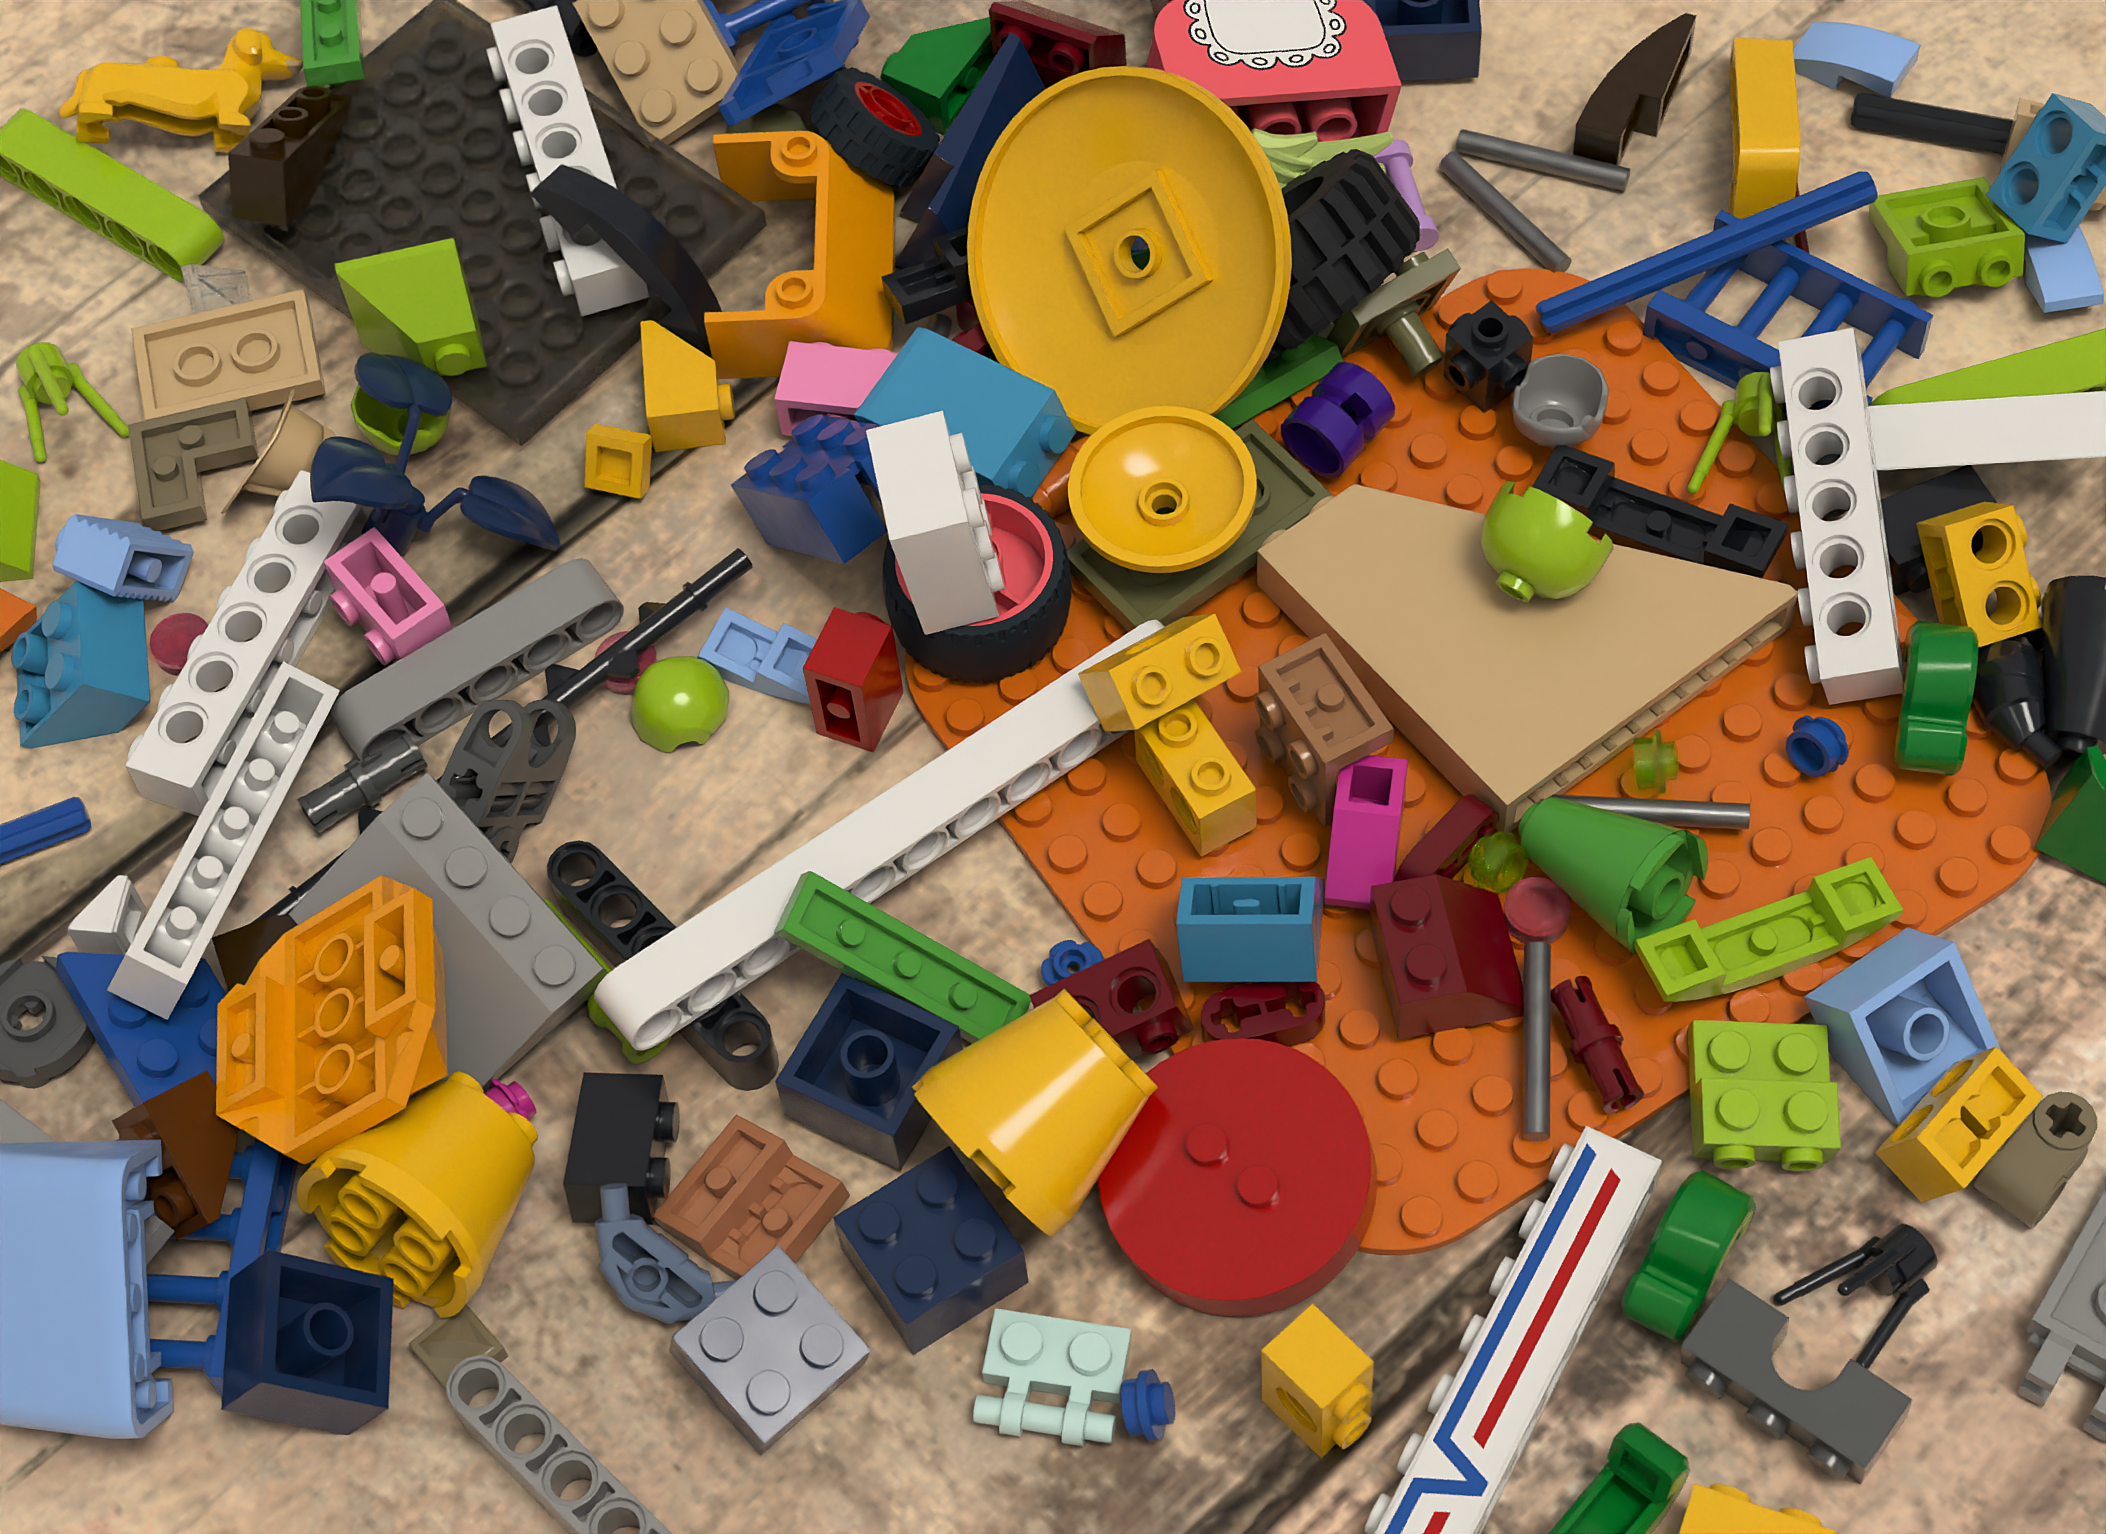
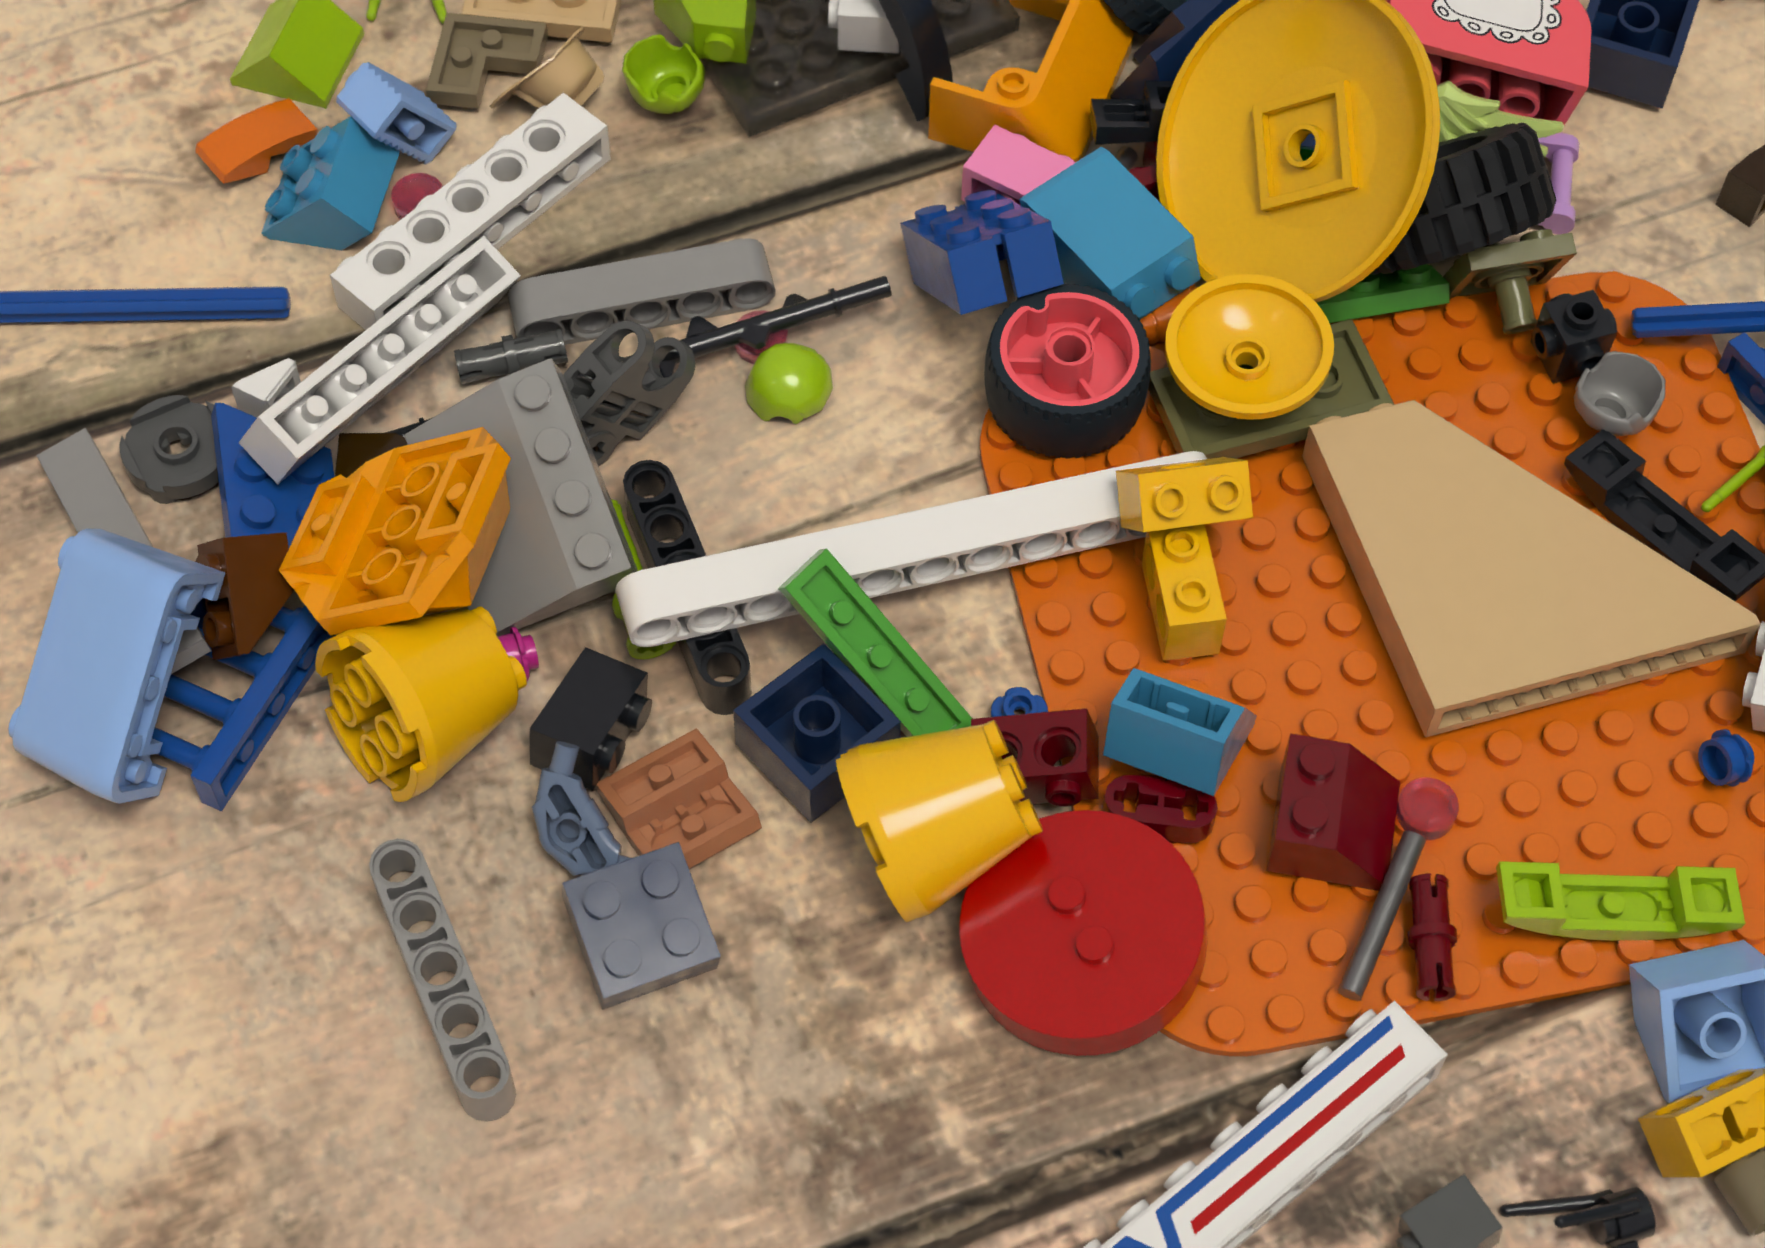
camera: 15 degrees right, 0 degrees up
(308, 1343) = (278, 779): dark blue brick -> none
(358, 473) = (602, 108): dark blue plant -> none
(385, 598) = (587, 214): bright pink brick -> none
(452, 1341) = (398, 821): dark tan tile -> none
(618, 461) = (819, 174): yellow tile -> none
(682, 392) = (893, 138): yellow slope -> none
(759, 656) = (873, 375): light blue slope -> none
(853, 678) = (934, 412): red brick -> none
(931, 1250) = (807, 896): dark blue brick -> none
(936, 521) = (1043, 302): white brick -> none
(1054, 1358) = (874, 1023): light aqua plate -> none
(1147, 1405) = (931, 1090): blue plate -> none
(1316, 721) = (1300, 580): medium nougat bracket -> none
(1318, 1382) = (1078, 1125): yellow brick -> none
(1338, 419) = (1426, 342): dark purple wheel -> none
(1365, 829) = (1307, 684): dark pink slope -> none
(1450, 841) = (1377, 722): dark red beam -> none
(1497, 862) = (1410, 755): clear neon green plate -> none
(1504, 213) = (1639, 226): flat silver bar -> none
(1540, 545) = (1549, 503): lime cylinder -> none
(1543, 159) = (1690, 194): flat silver bar -> none
(1615, 865) = (1509, 795): bright green cone -> none
(1655, 761) = (1579, 721): clear neon green plate -> none
(1674, 811) = (1559, 762): flat silver bar -> none
(1687, 1254) = (1438, 1141): green animal -> none
(1762, 1094) = (1559, 1033): lime plate -> none

